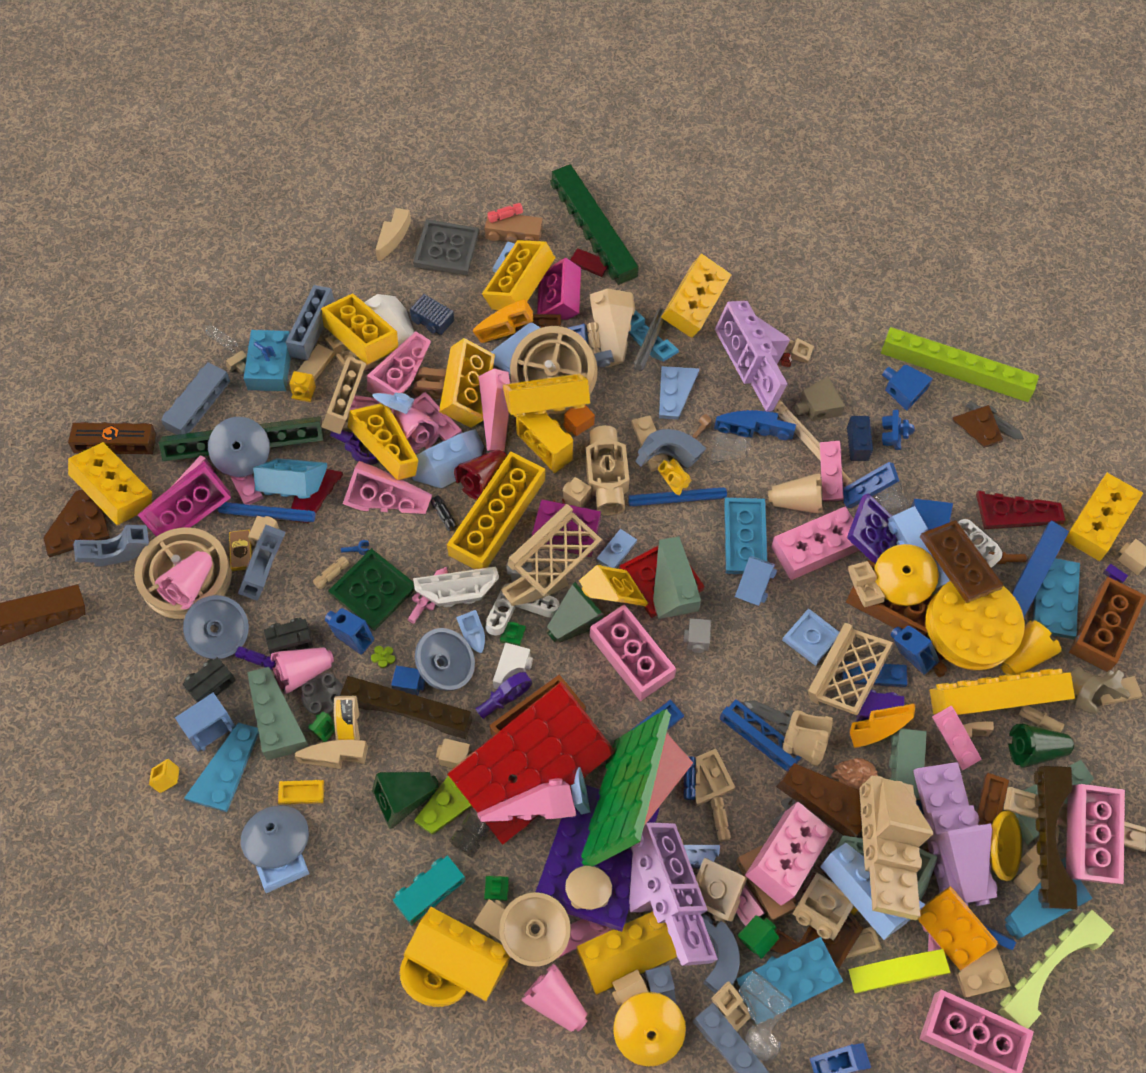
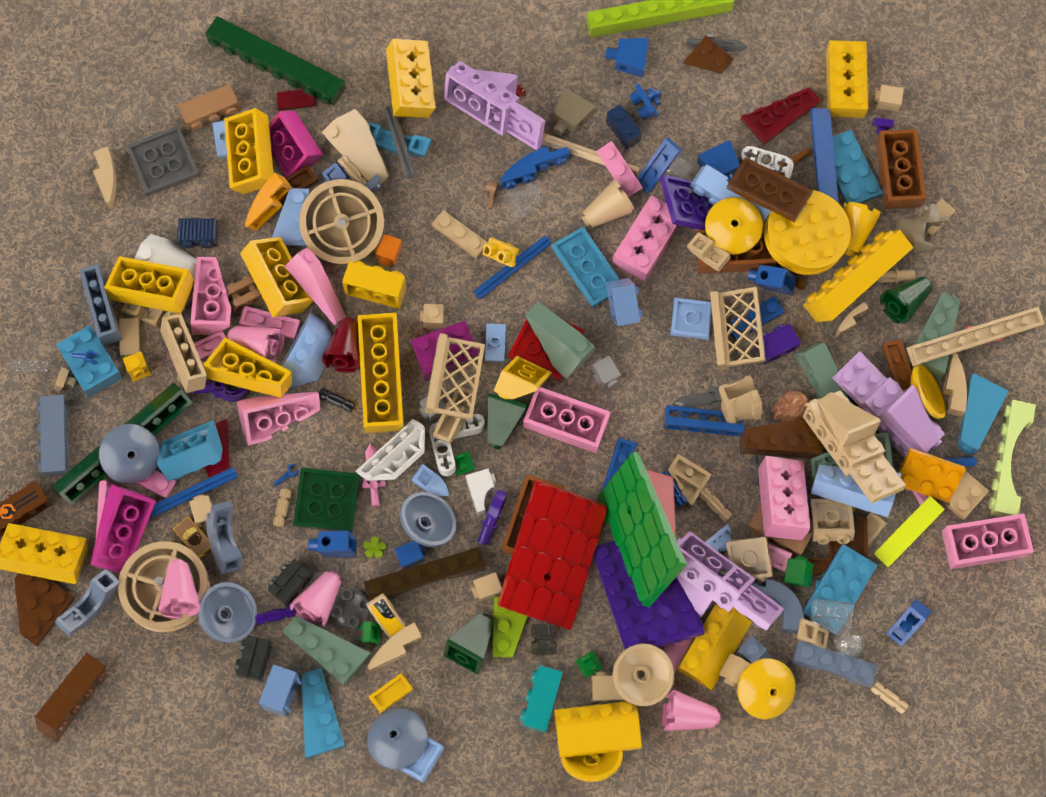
camera: 35 degrees left, 10 degrees up
(164, 776) = (275, 752): yellow slope -> none
(398, 401) = (233, 331): light blue plate -> none
(505, 212) = (195, 99): coral axle -> none
(546, 394) = (357, 249): yellow slope -> none
(546, 800) = (583, 577): bright pink wedge -> none
(579, 793) = (606, 557): light blue plate -> none
(588, 888) = (661, 619): tan dish -> none
(607, 470) = (443, 280): tan brick -> none
(672, 443) = (482, 224): sand blue arch -> none
(675, 389) = (447, 174): light blue wing -> none
(799, 350) = (526, 75): tan slope -> none
(880, 724) = (788, 357): light orange slope -> none
(956, 737) = (847, 332): bright pink plate -> none
(1057, 887) = (939, 329): dark brown arch -> none
(1095, 834) = (986, 344): bright pink brick -> none

